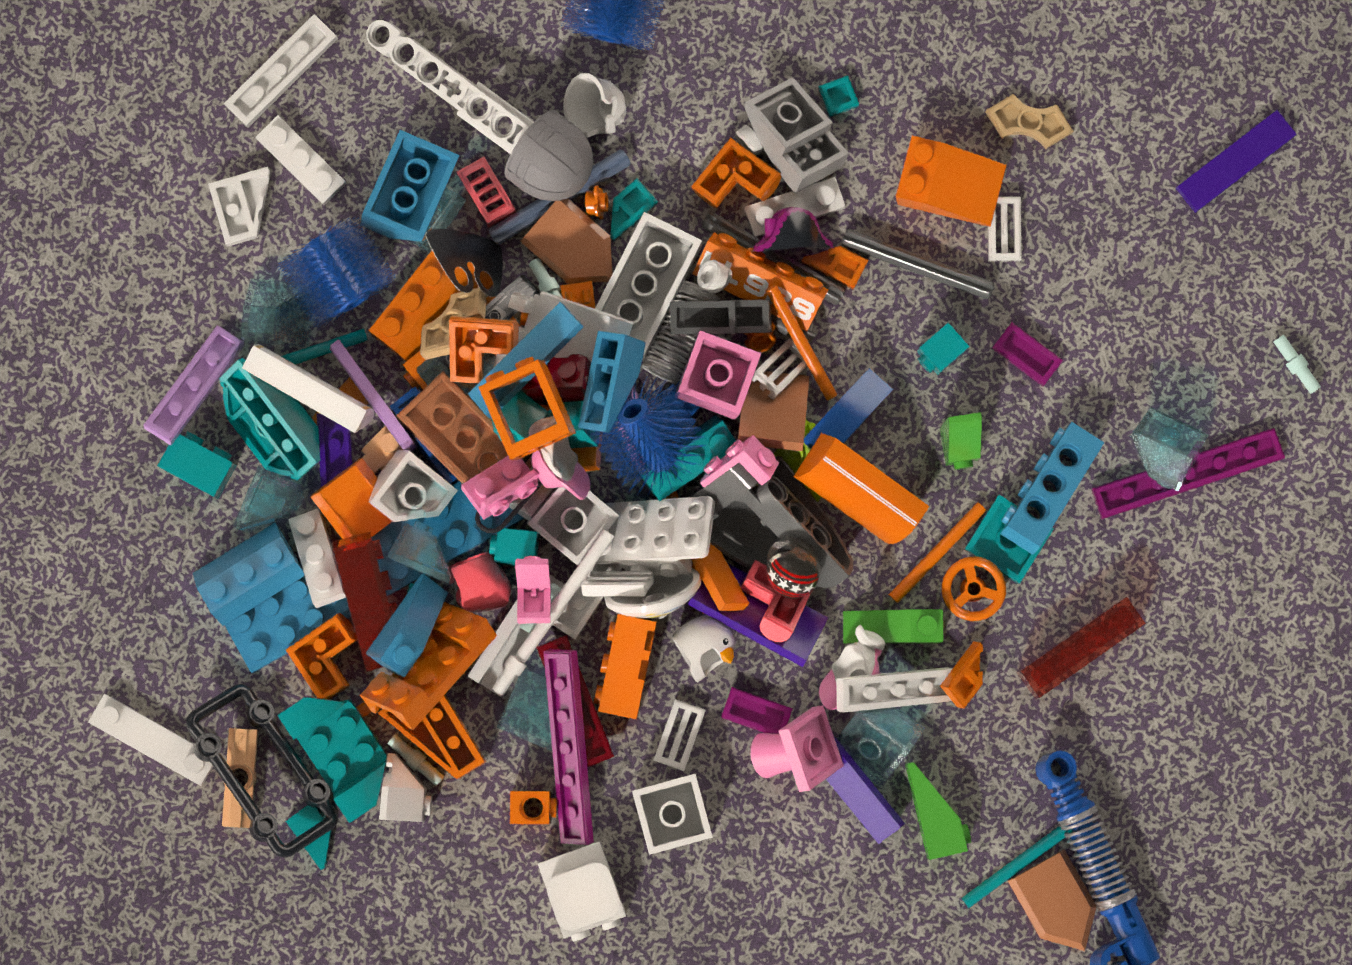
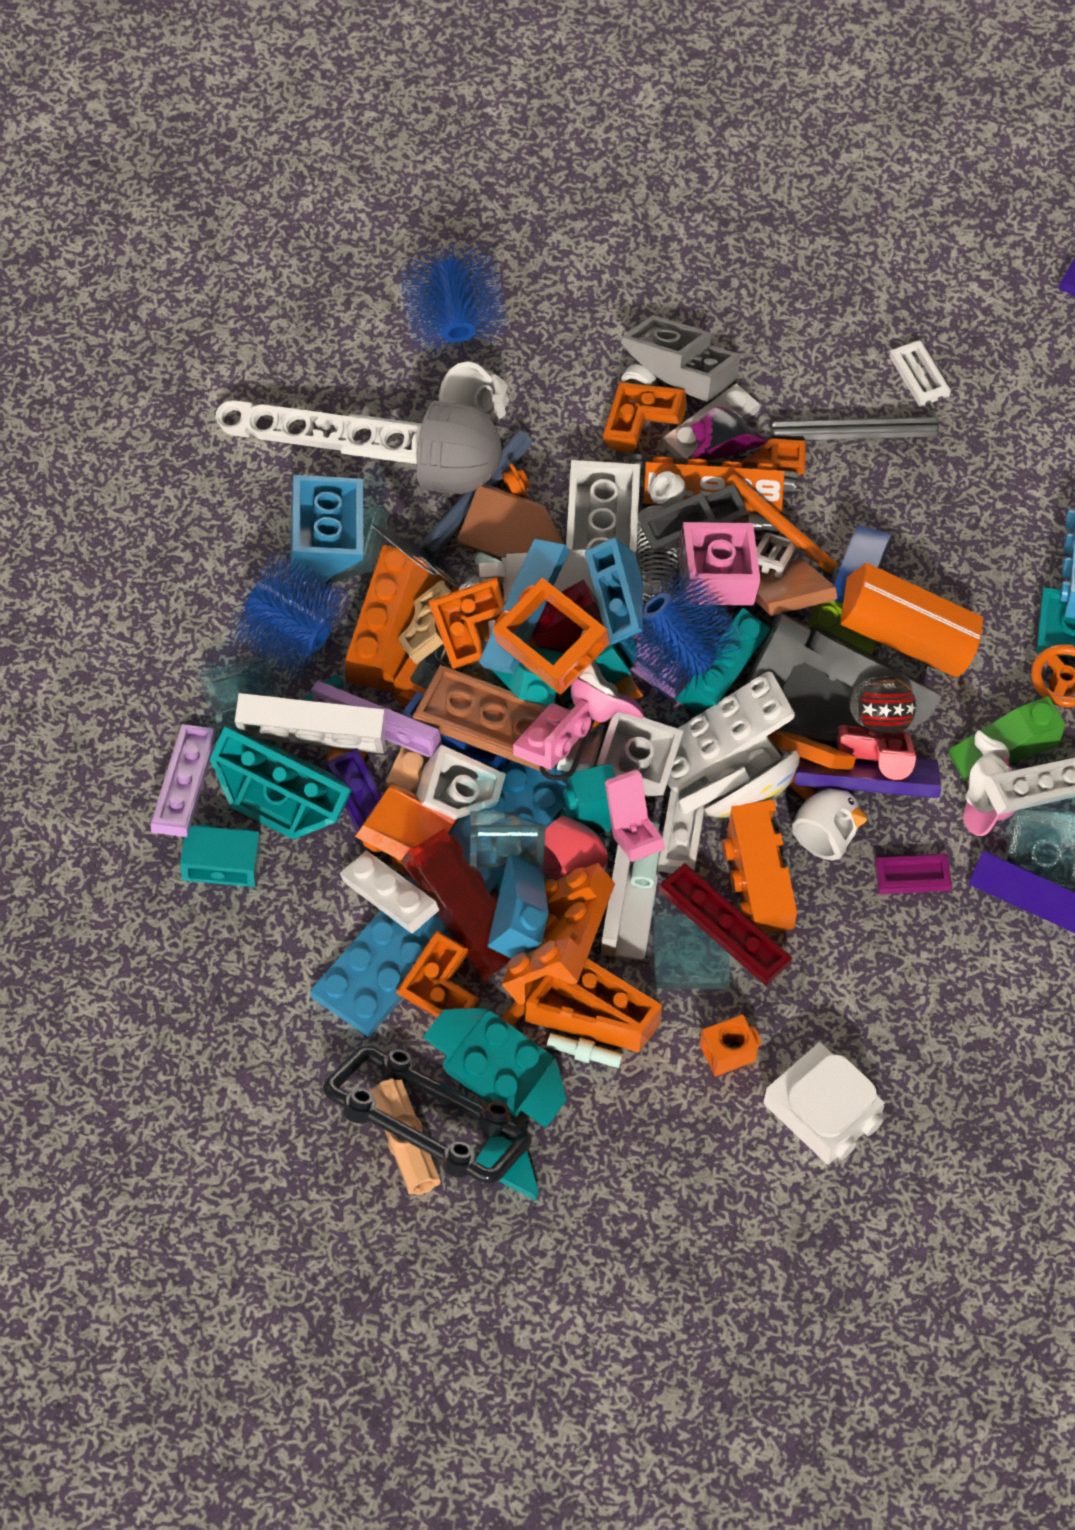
camera: 25 degrees left, 25 degrees down
(150, 738) = (291, 1140): white plate -> none
(240, 204) = (156, 609): white wing -> none
(248, 574) = (325, 933): dark azure slope -> none
(268, 501) = (313, 855): clear light blue slope -> none
(280, 71) = (144, 482): white plate -> none
(300, 160) = (200, 552): white plate -> none
(403, 793) = (589, 1082): white slope -> none
(500, 212) = (412, 532): coral slope -> none
(516, 663) = (646, 909): white bar -> none
(568, 747) = (741, 964): magenta tile -> none
(629, 207) = (550, 478): teal tile -> none
(670, 760) = (848, 950): white tile -> none
(672, 814) = (880, 989): white brick -> none
(751, 454) = (800, 612): bright pink bracket -> none
(801, 746) = (971, 878): bright pink plant -> none
(838, 96) = (704, 317): teal tile -> none
(937, 552) = (1011, 664): orange bar -> none
(941, 350) = (919, 486): teal brick -> none
(950, 182) = (846, 347): orange slope -> none
(962, 440) = (981, 541): bright green slope -> none
(1015, 118) = (877, 281): tan tile -> none
(1027, 354) = (1000, 467): magenta tile -> none

